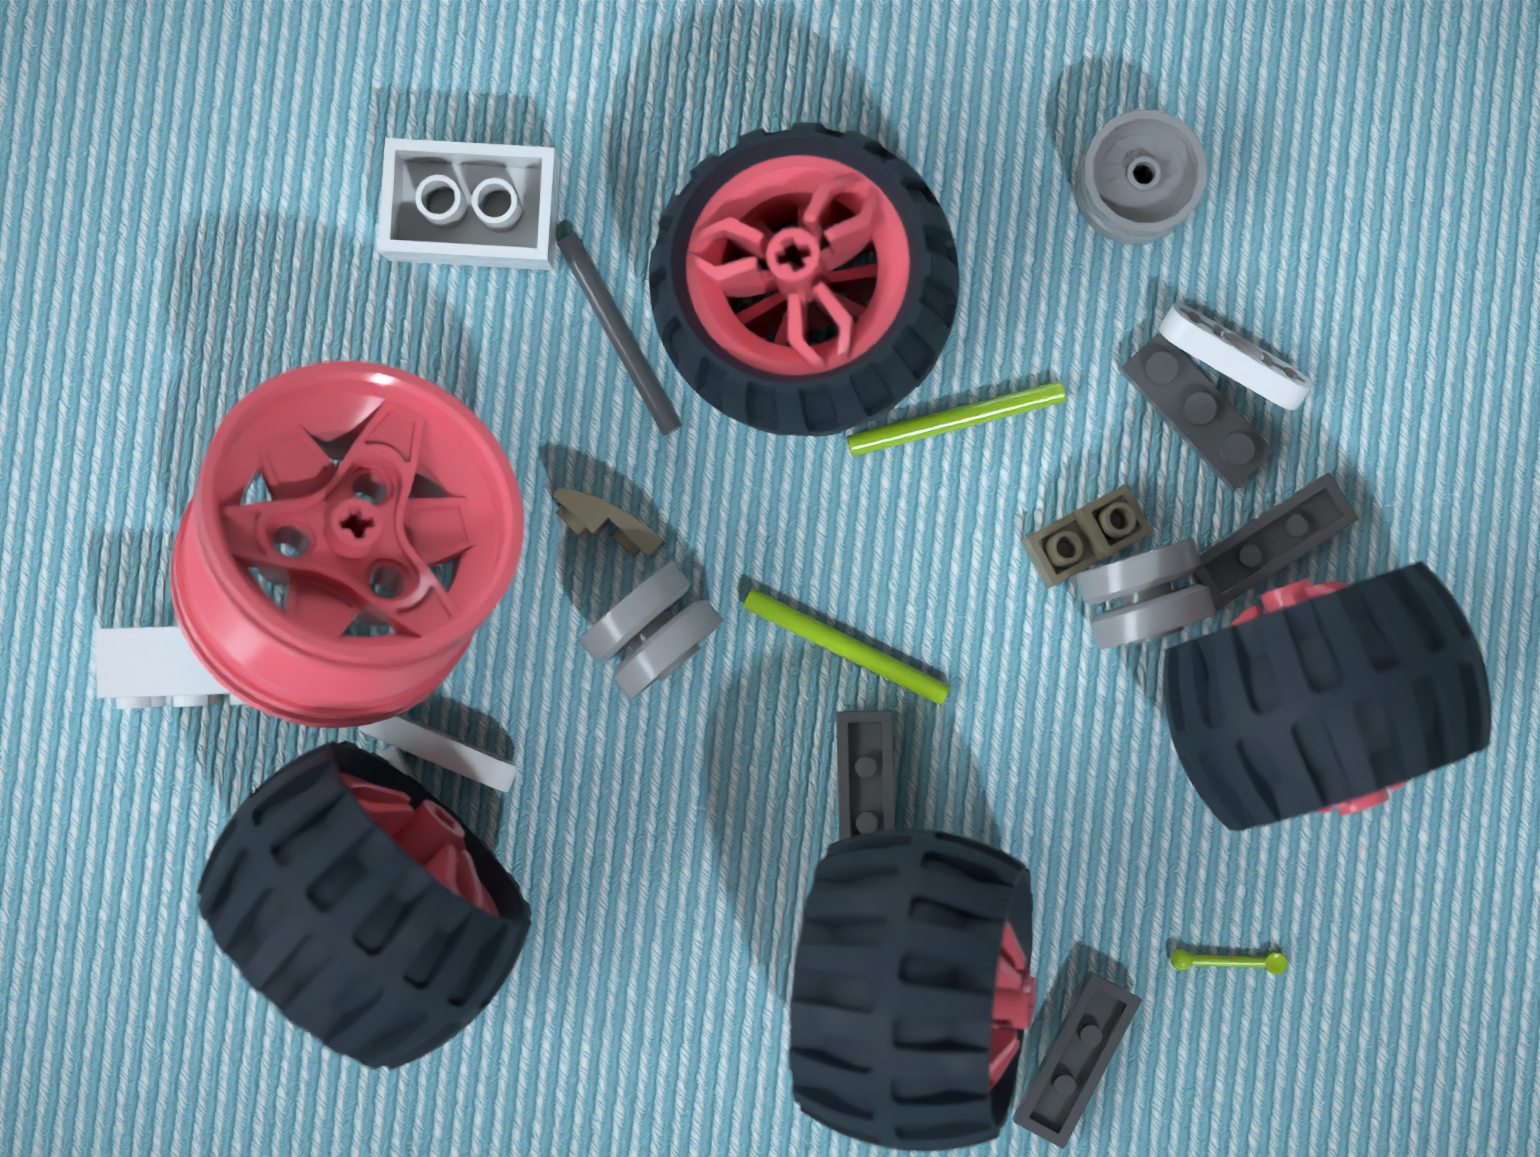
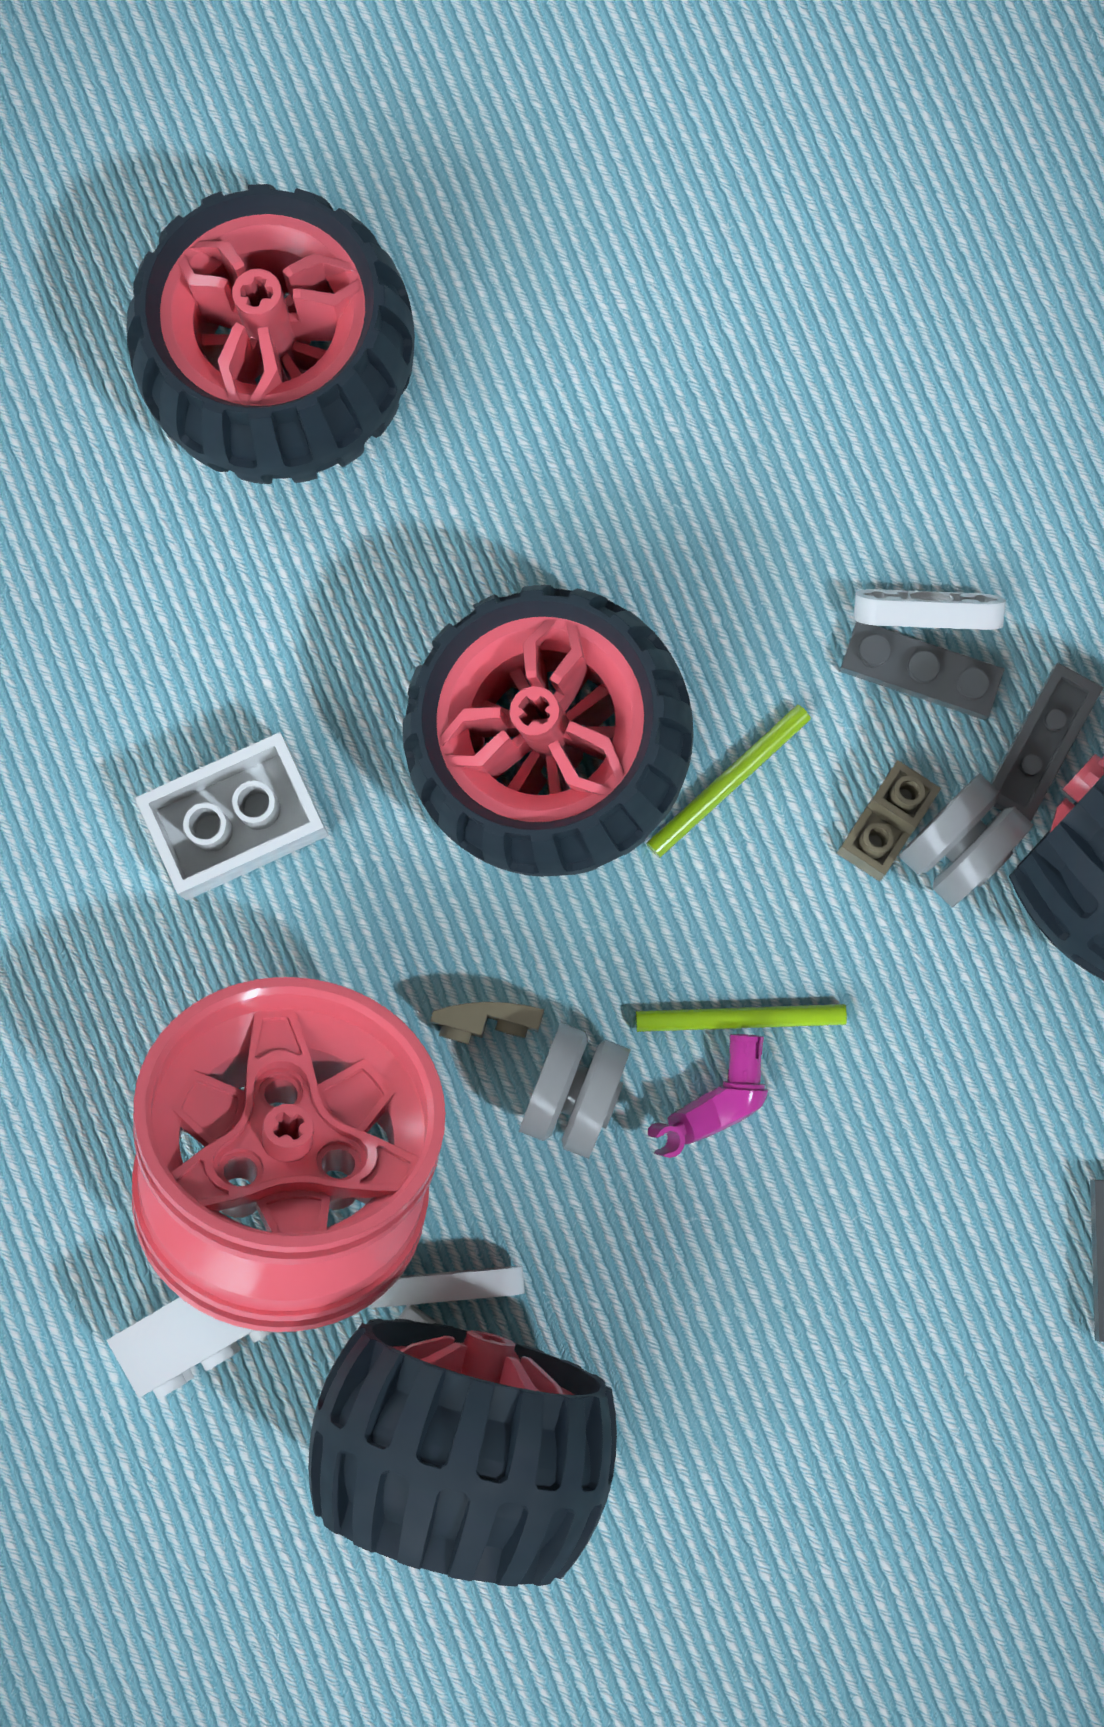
camera: 35 degrees left, 5 degrees down
(619, 334) = (412, 859): dark grey bar -> none
(782, 719) = (722, 1106): none -> dark pink arm
(865, 772) = (825, 1132): dark grey plate -> none
(912, 989) = (960, 1271): black wheel -> none
(1170, 166) = (790, 481): light grey wheel -> none

